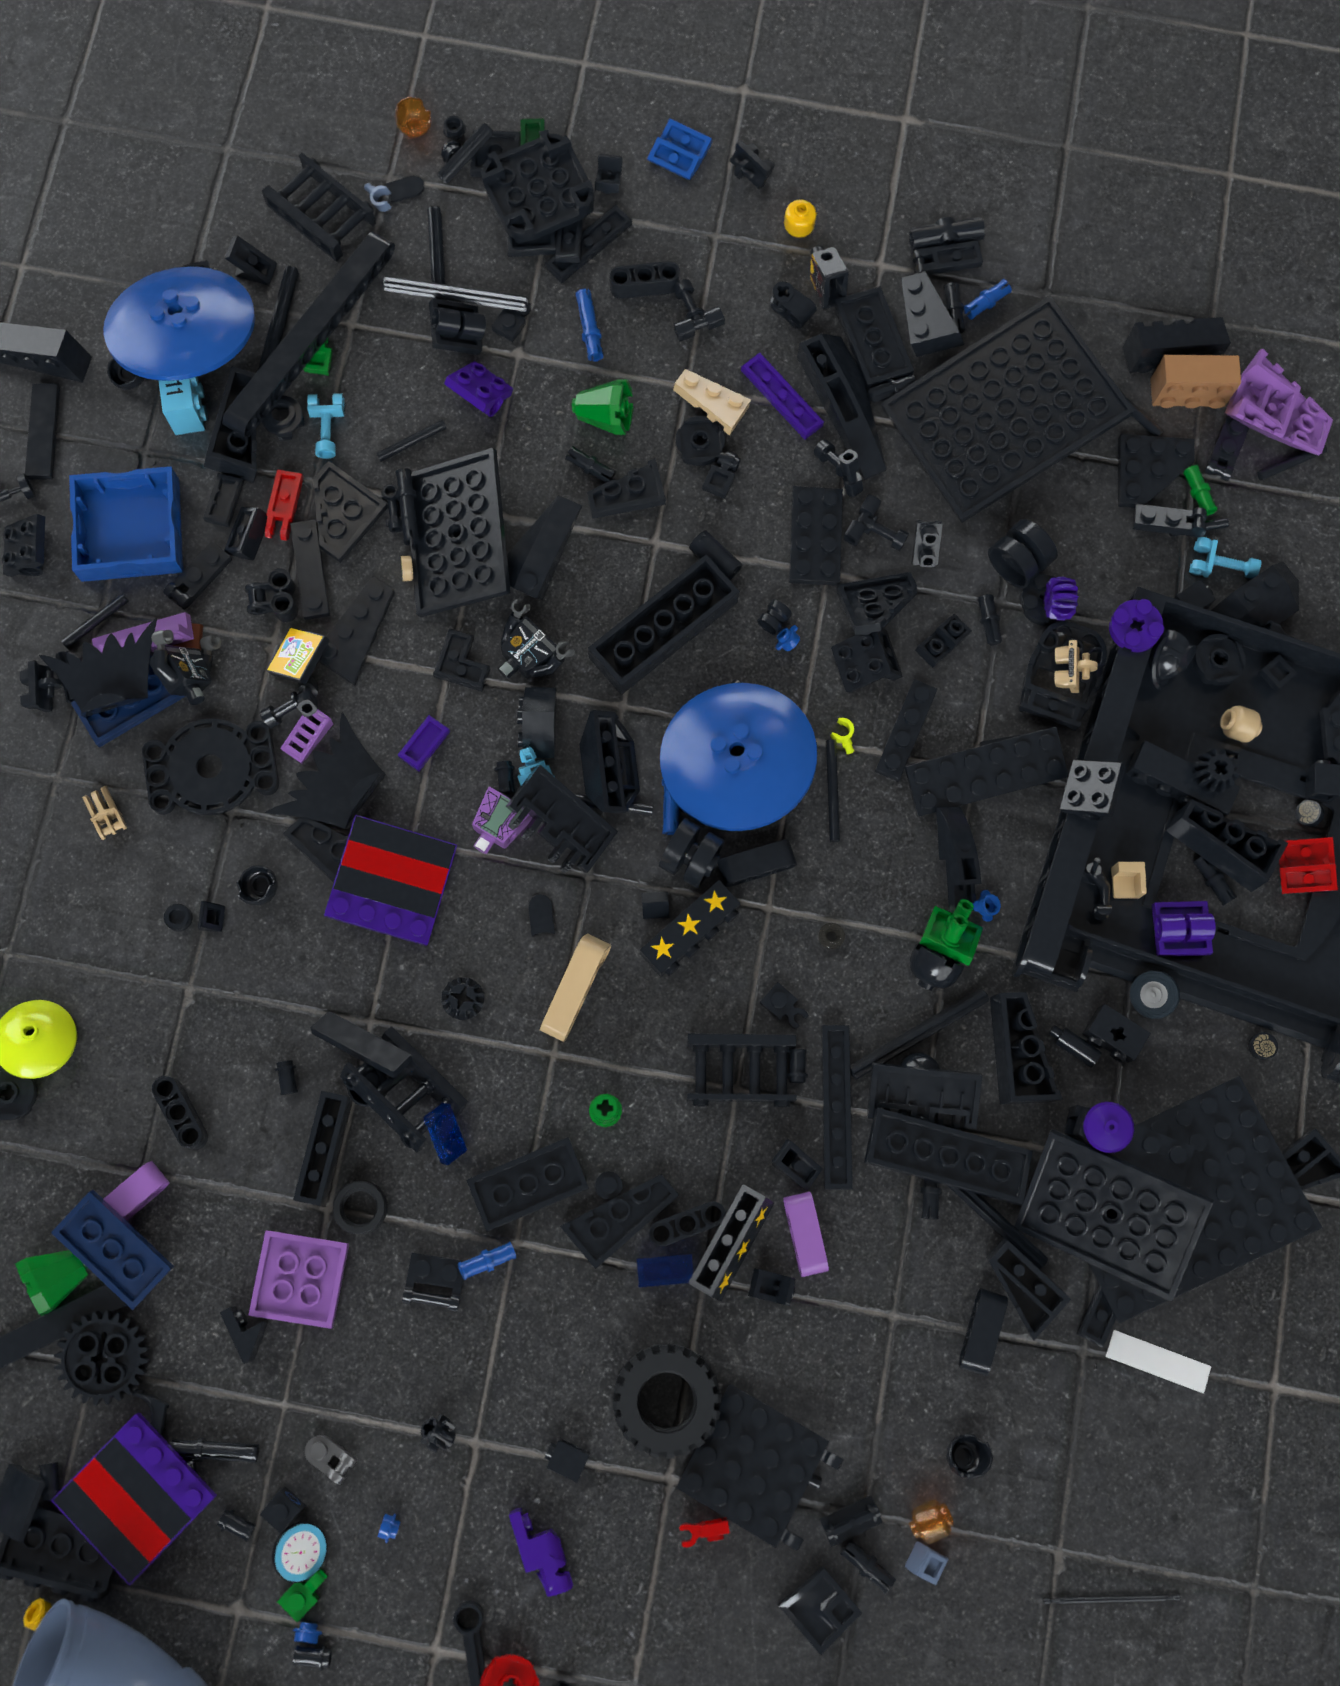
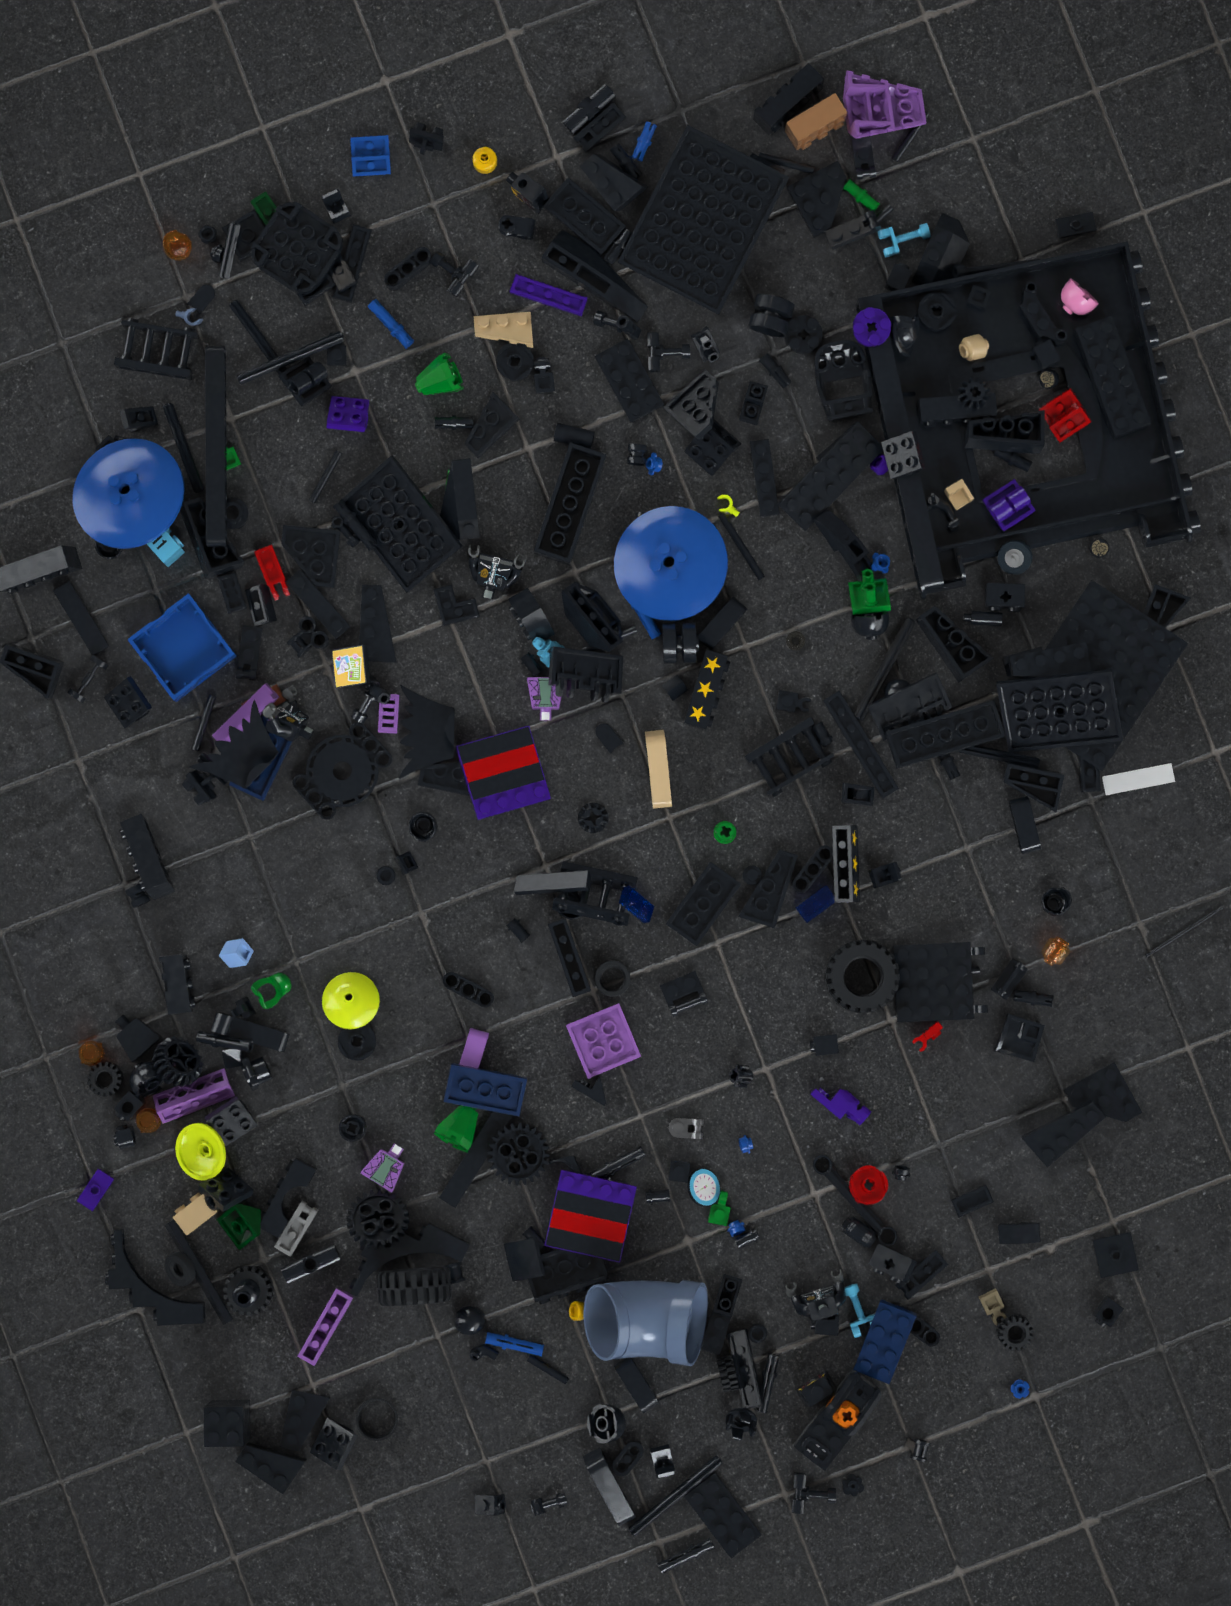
camera: 25 degrees left, 10 degrees up
(105, 815) = (299, 841): tan arm -> none
(325, 448) = (273, 516): medium azure bar -> none
(406, 566) = (381, 566): tan tile -> none
(423, 743) = (465, 673): dark purple tile -> none
(487, 1260) = (707, 962): blue pin -> none
(805, 1234) = (886, 832): medium lavender beam -> none
(926, 1563) = (1066, 976): sand blue slope -> none
(1051, 794) = (879, 465): none -> dark purple tile
(1061, 598) = (813, 333): dark purple gear -> none
(1071, 656) = (842, 368): tan hips -> none
(1108, 1127) = (1028, 661): dark purple piece -> none

